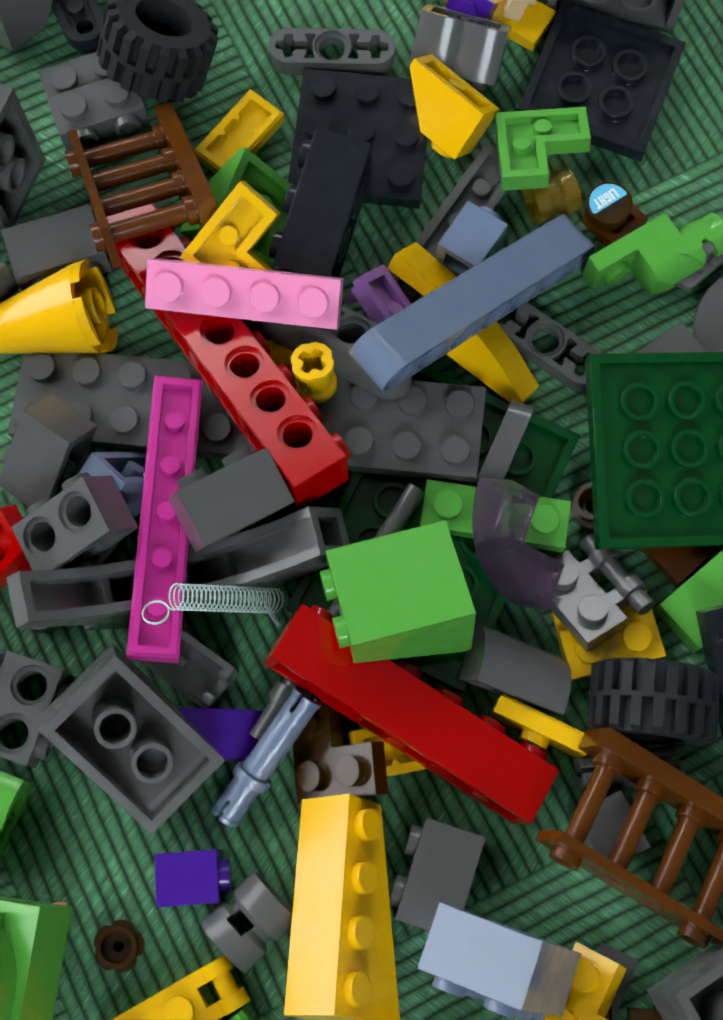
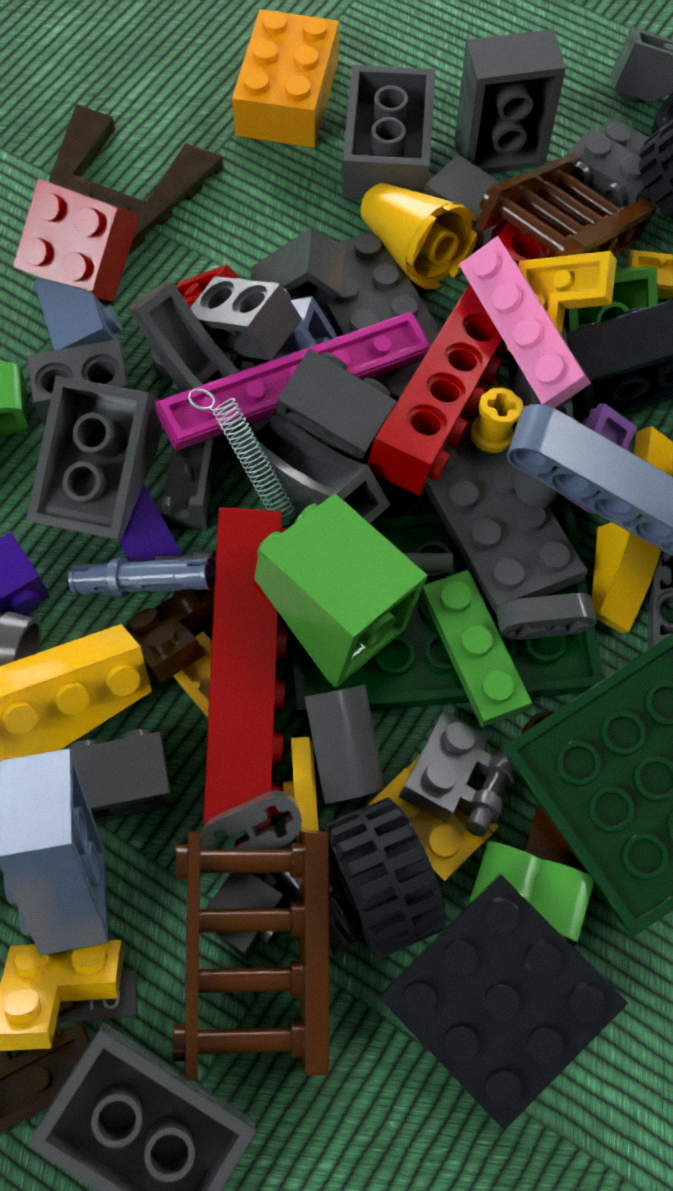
camera: 60 degrees right, 10 degrees down
(499, 528) = (433, 683): clear purple brick -> none
(557, 785) = (250, 814): none -> dark grey beam

